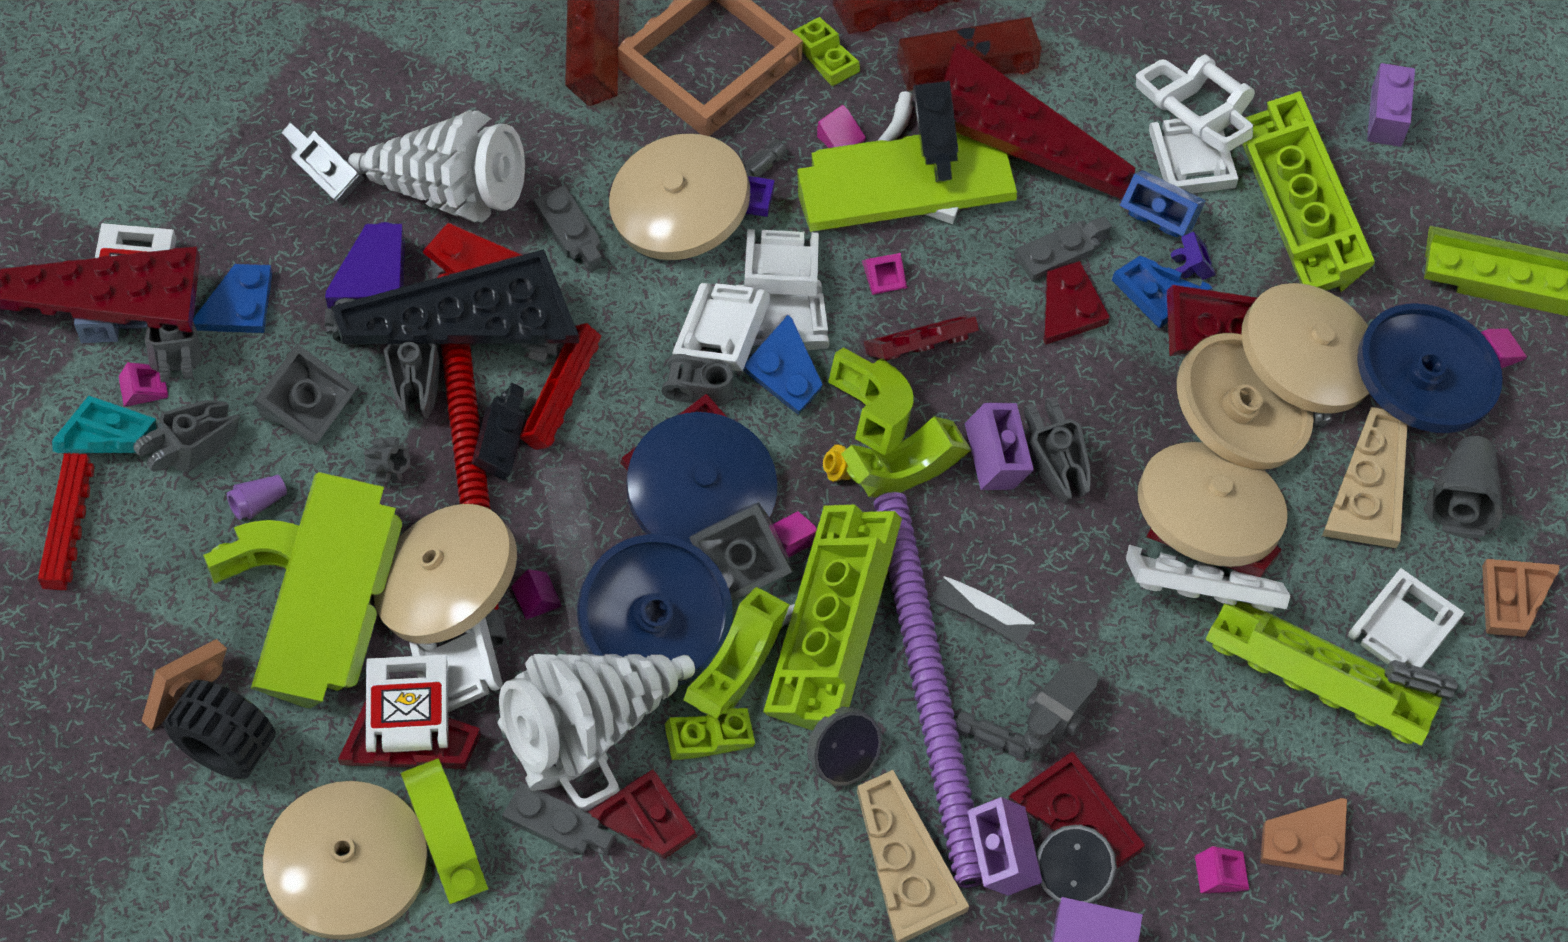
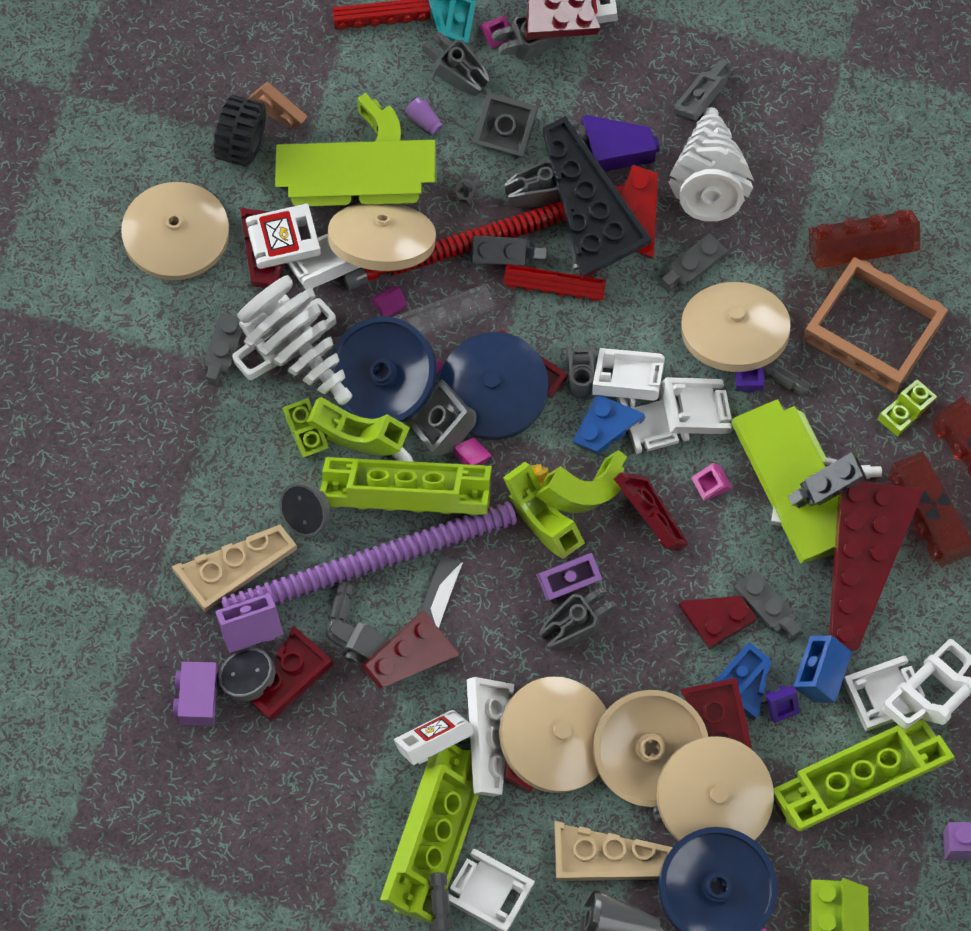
camera: 80 degrees right, 5 degrees up
(238, 301) = (577, 70): blue wing -> none
(444, 831) = (199, 270): lime arch -> none
(646, 816) = (236, 400): dark red wing -> none
(839, 129) = (832, 429): dark pink slope -> none
(1079, 651) = (409, 652): none -> wing
(1199, 633) = (433, 737): none -> white container
(1221, 870) = (265, 778): dark pink slope -> none
(1307, 839) = (300, 834): nougat wing -> none

